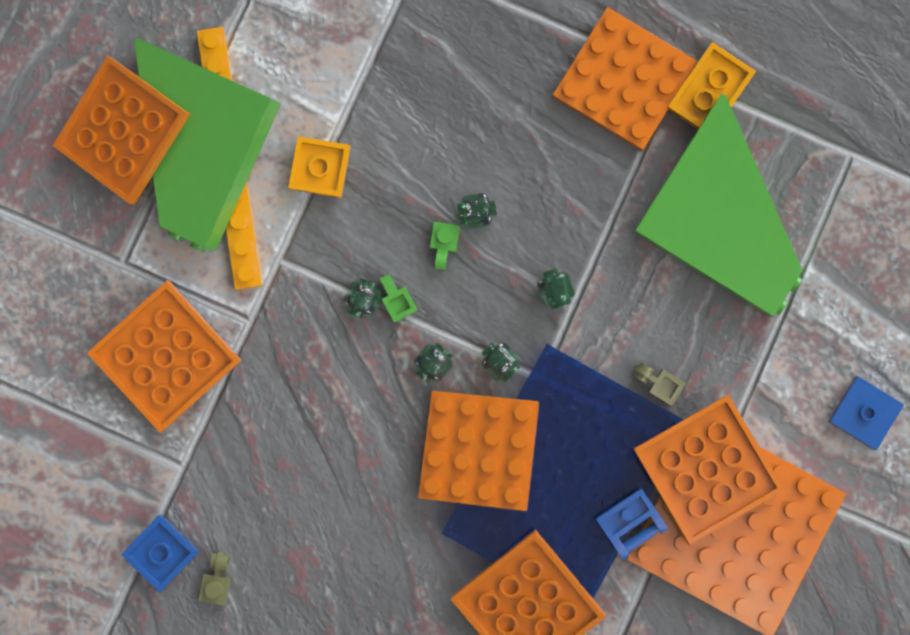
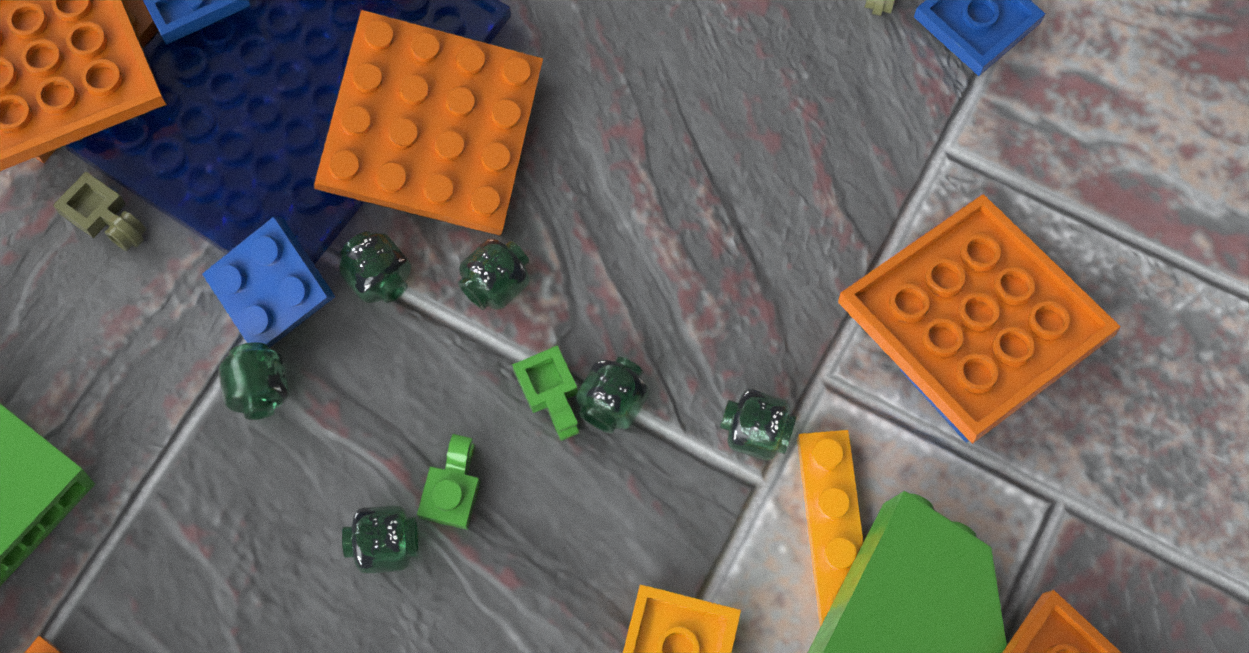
camera: 175 degrees left, 15 degrees down
(283, 287) = (758, 425): none -> clear green head
(555, 343) = (268, 283): none -> blue plate

